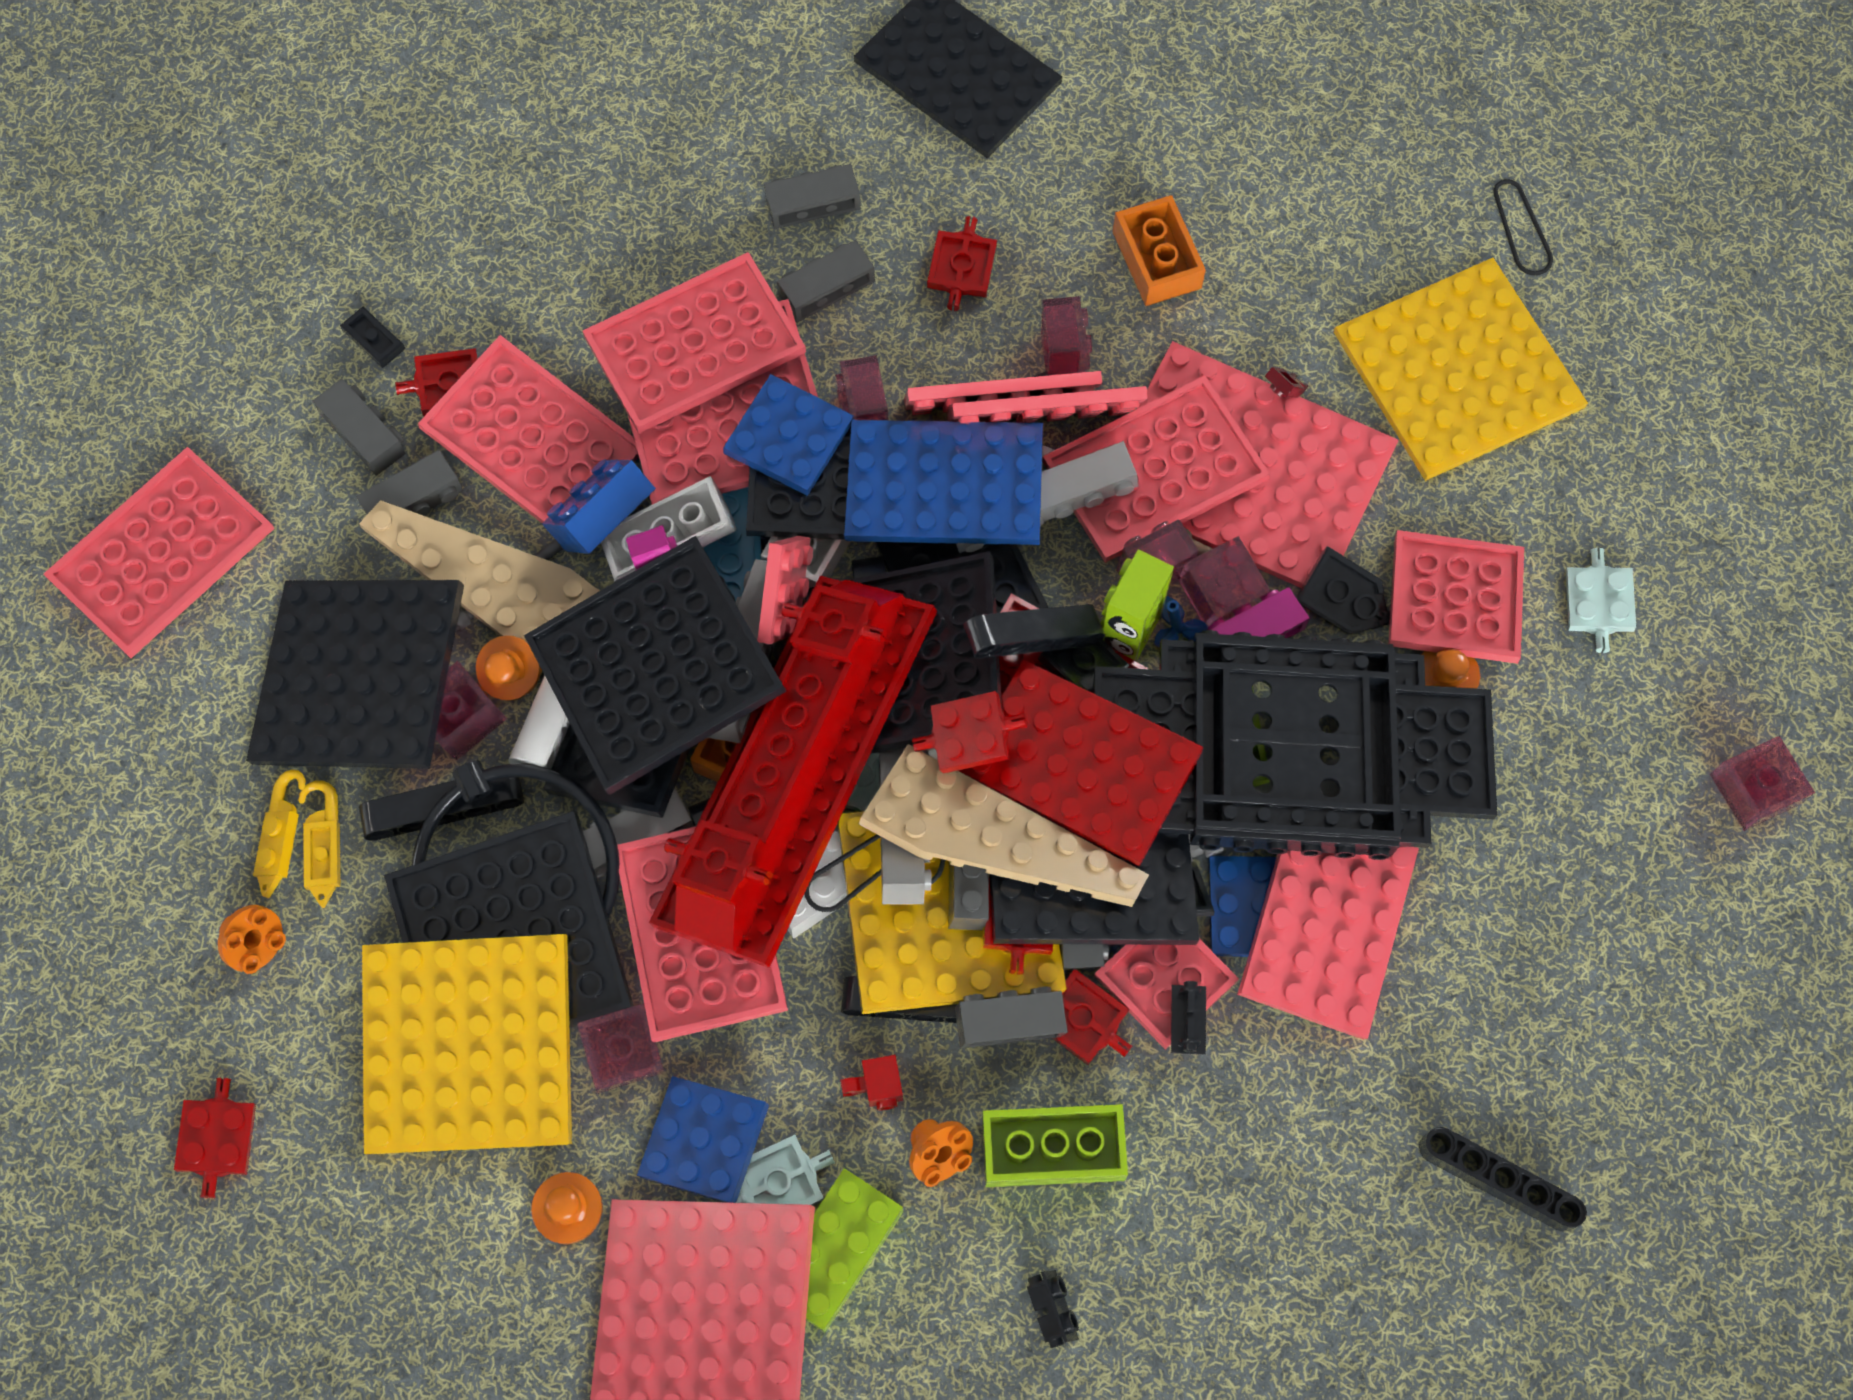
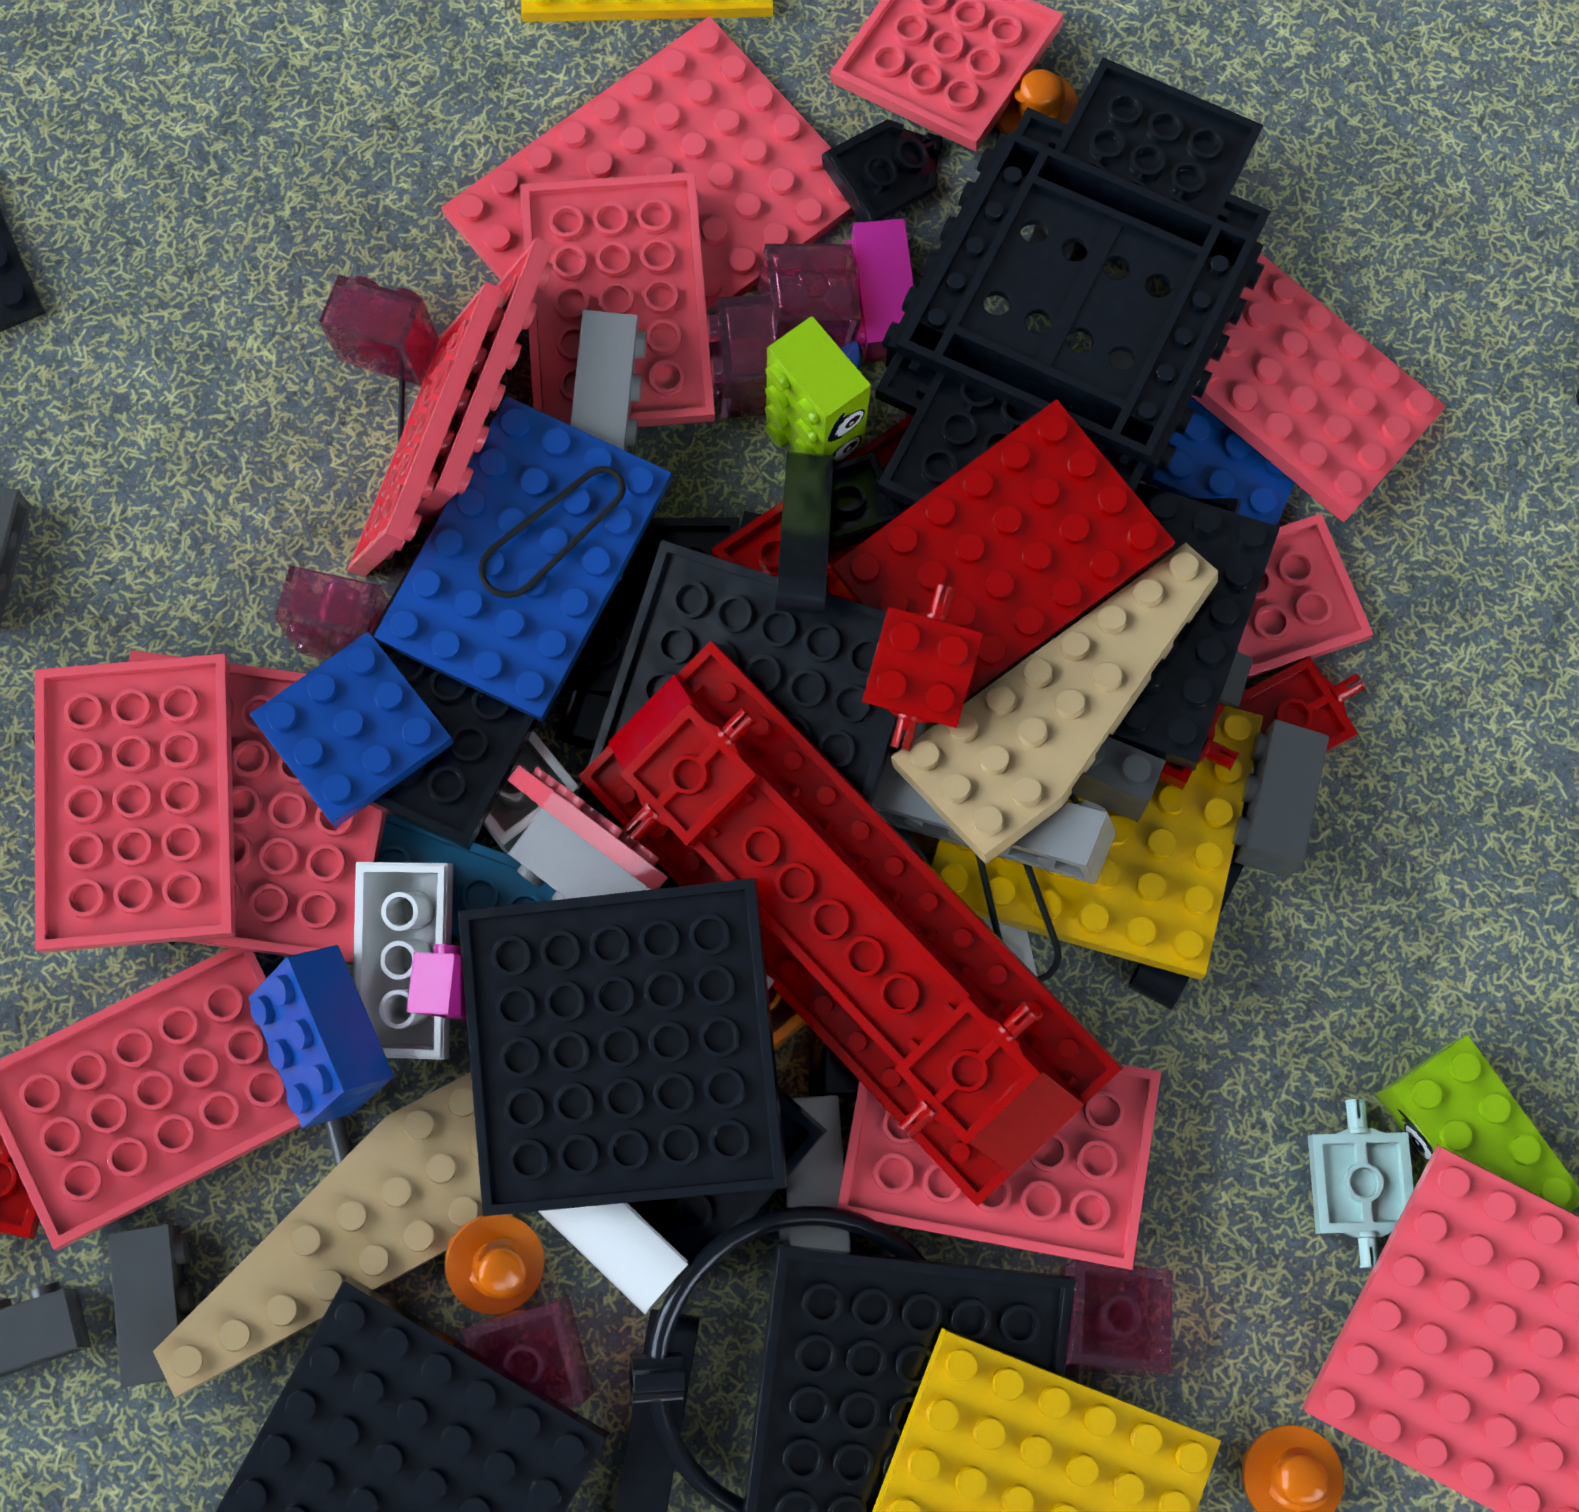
camera: 70 degrees left, 5 degrees up
(703, 1140) = (1275, 1258): blue plate -> none
(826, 280) = (120, 590): dark grey brick -> none
(880, 1082) = (1284, 999): red brick -> none
(939, 1150) = (1399, 962): orange plate -> none
(962, 263) = (190, 409): red plate -> none
(962, 501) = (563, 552): none -> black piece
(1054, 1145) = (1450, 820): lime brick -> none
(1158, 250) = (307, 160): orange brick -> none
(1188, 1019) = (1355, 592): black hinge -> none
(1284, 383) = (577, 100): dark red plate -> none

